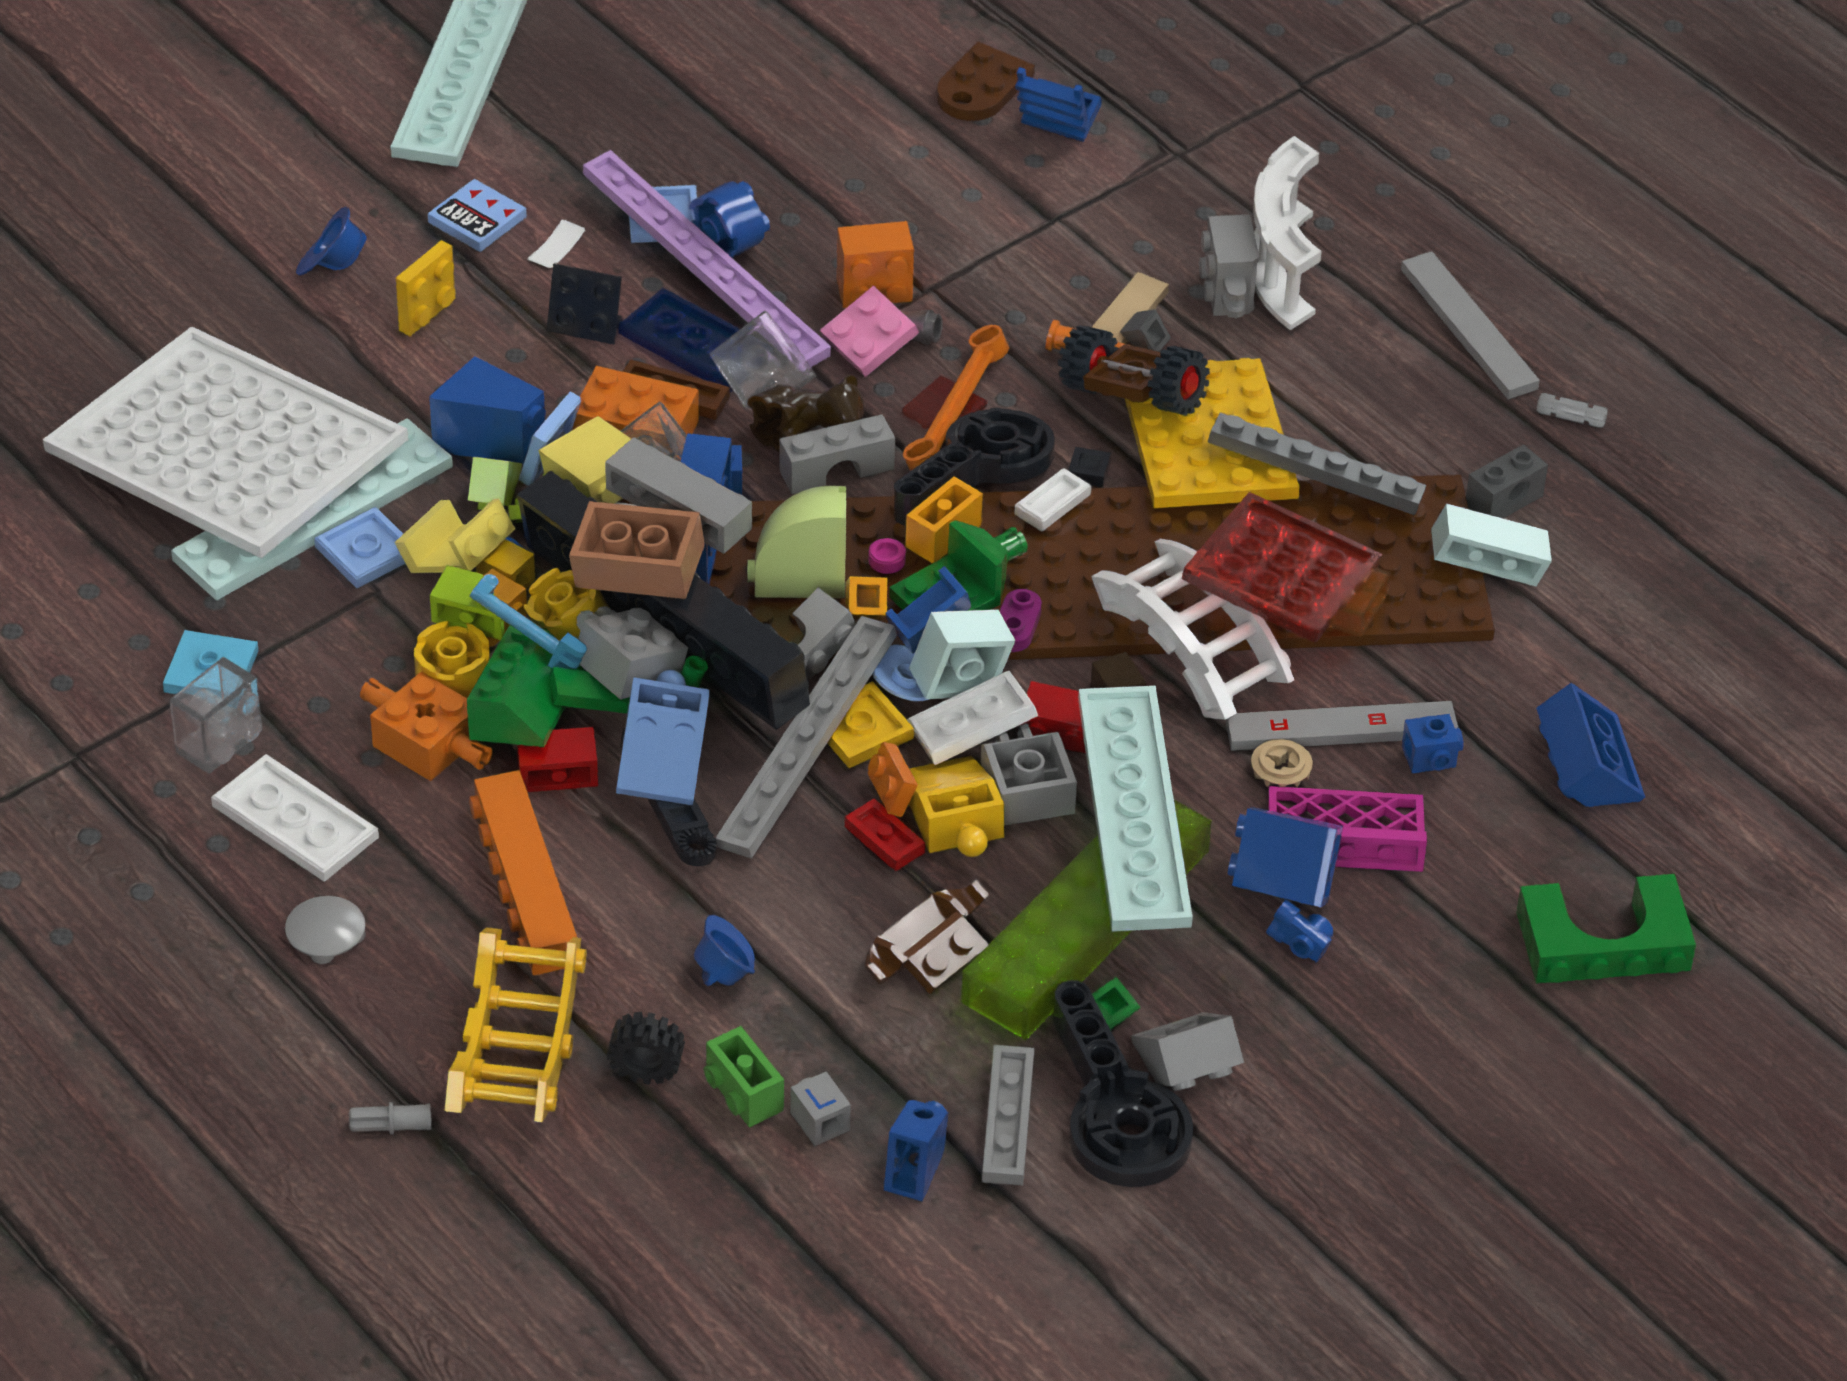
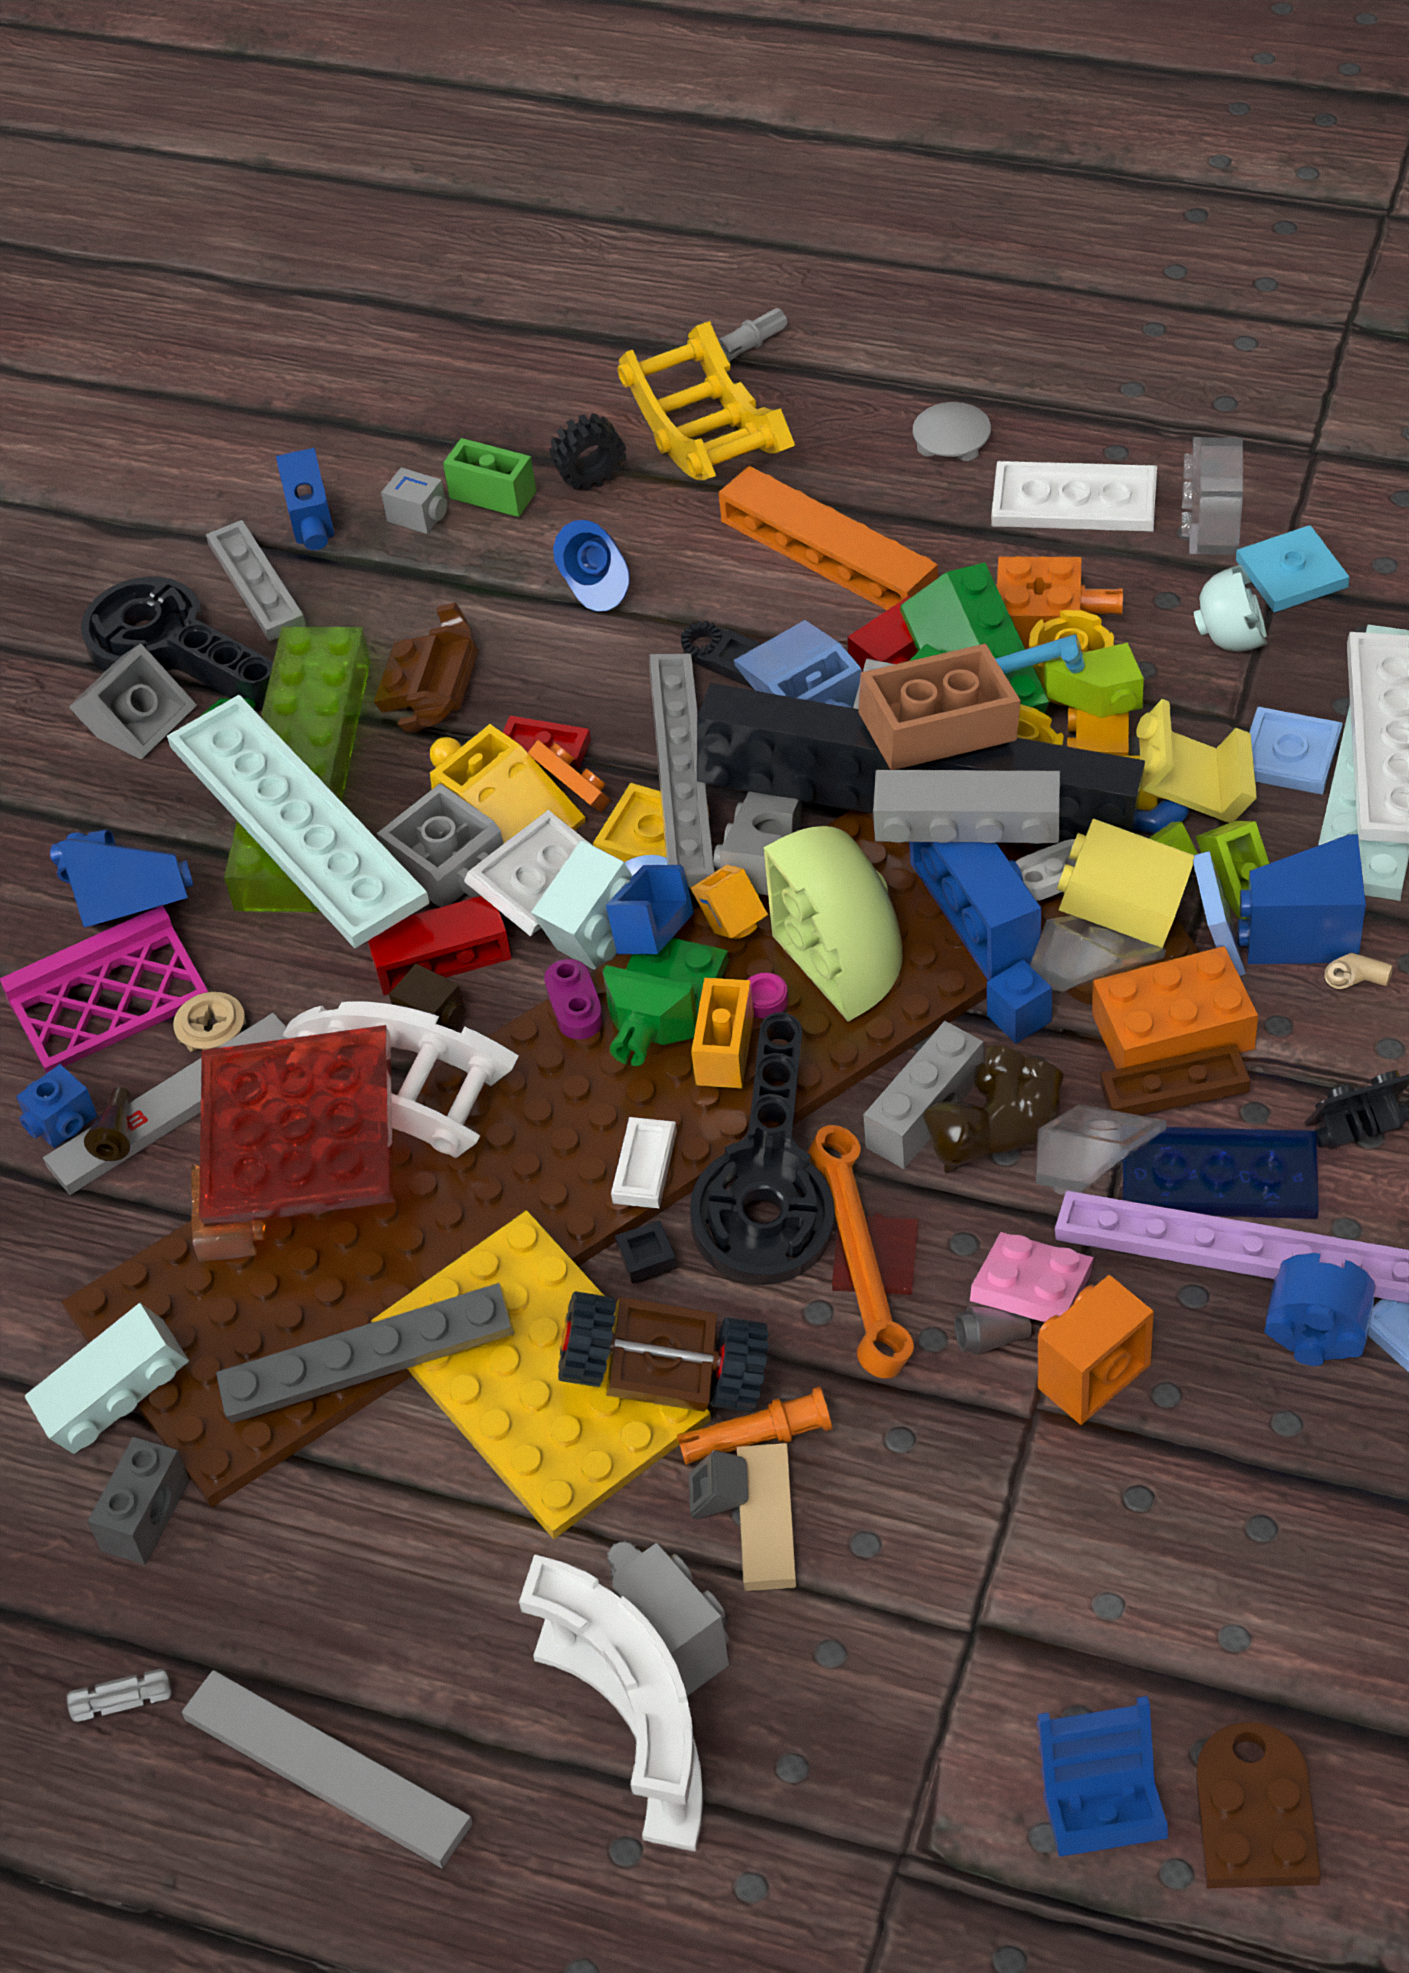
camera: 155 degrees right, 5 degrees up
(304, 635) = (1231, 612): none -> light aqua cylinder
(1403, 699) = (110, 1133): none -> dark brown cone

